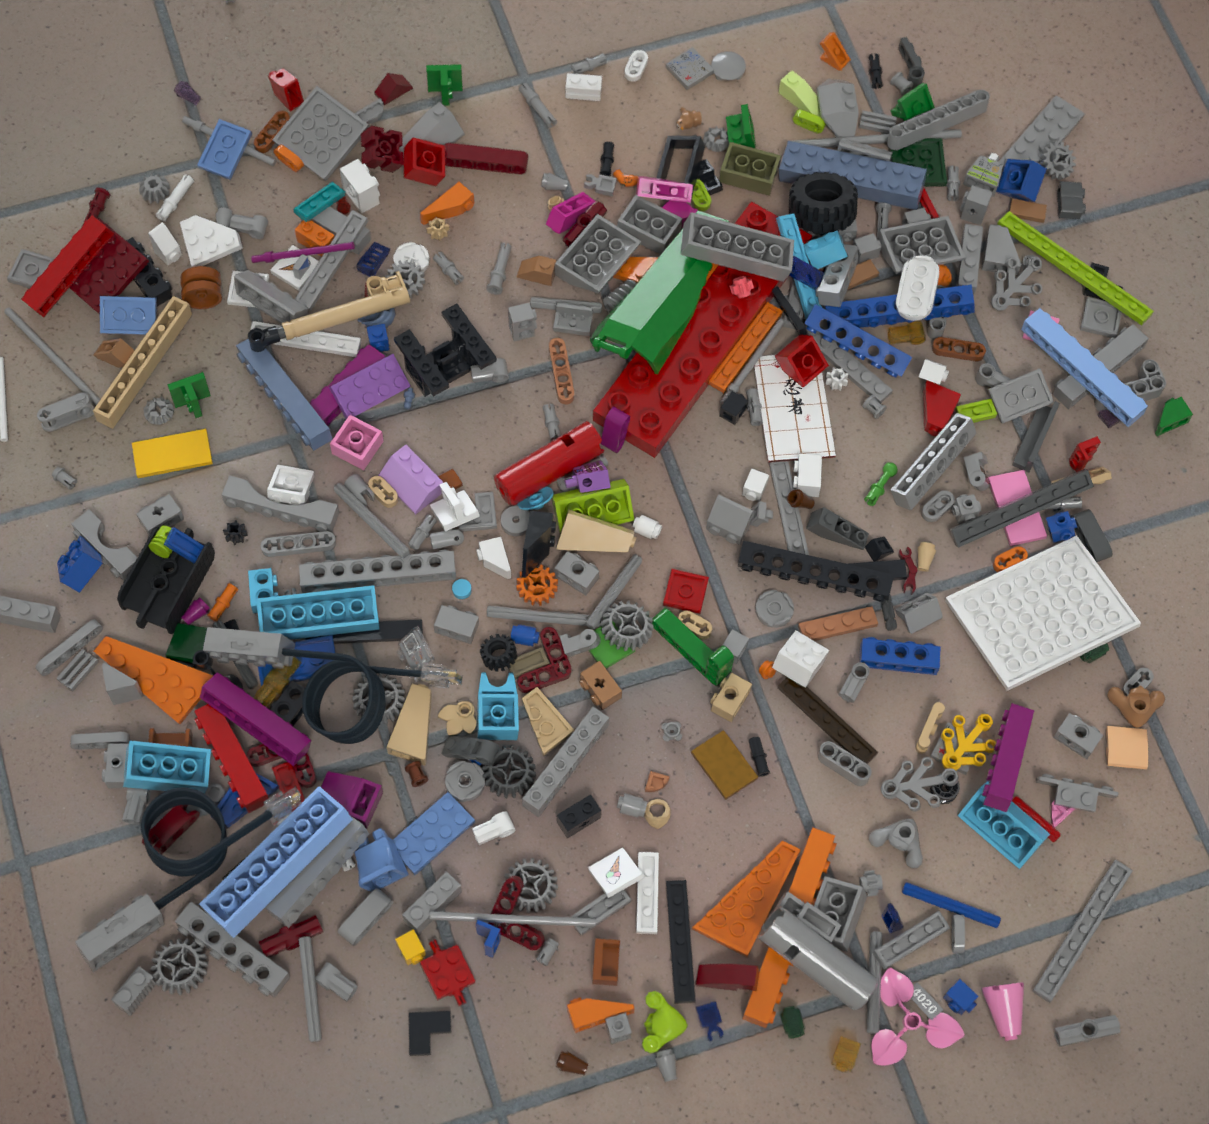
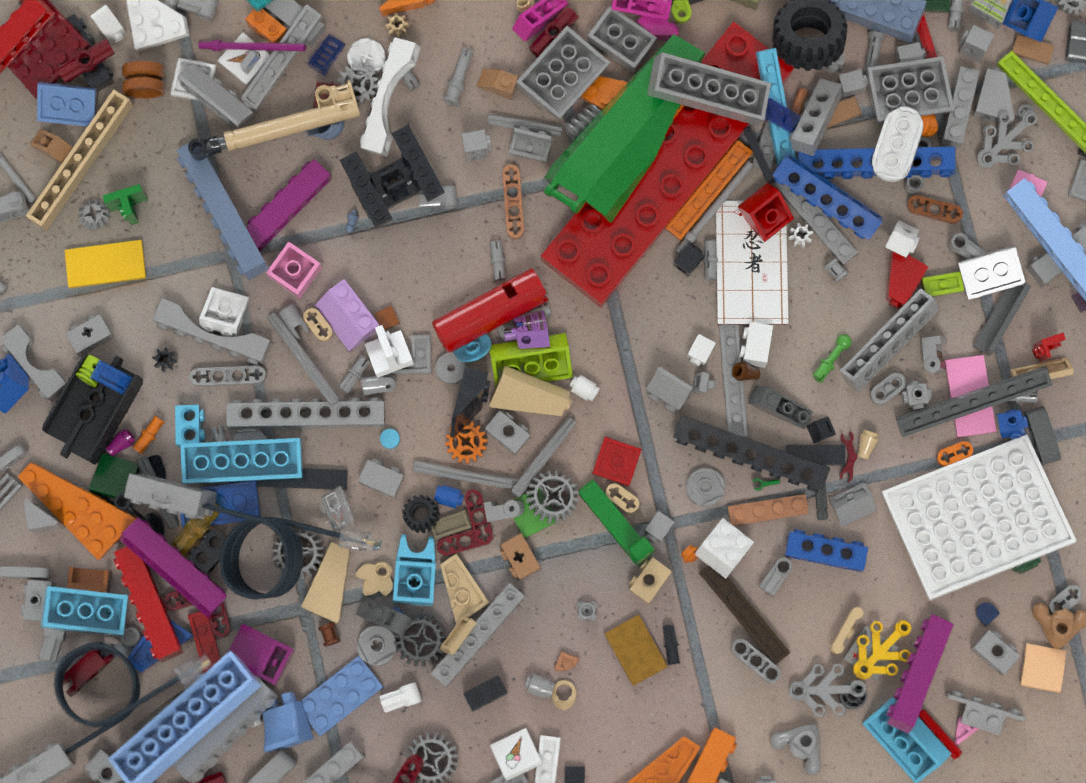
camera: 10 degrees right, 15 degrees up
(137, 278) = (74, 67): none -> dark red piece
(319, 341) = (268, 150): white plate -> none
(369, 386) = (311, 208): medium lavender plate -> none
(378, 337) = (324, 151): blue brick -> none
(445, 253) = (401, 59): none -> white arch
(494, 556) = (425, 407): white slope -> none
(546, 760) = (457, 635): none -> tan tile
(615, 429) = (561, 281): magenta beam -> none
(741, 286) = (710, 130): coral gear -> none
(825, 250) = (806, 89): medium azure slope -> none
(831, 600) = (765, 483): none -> green hand
(911, 333) = (881, 188): clear yellow piece -> none
(1063, 702) = (986, 613): none -> dark blue tile

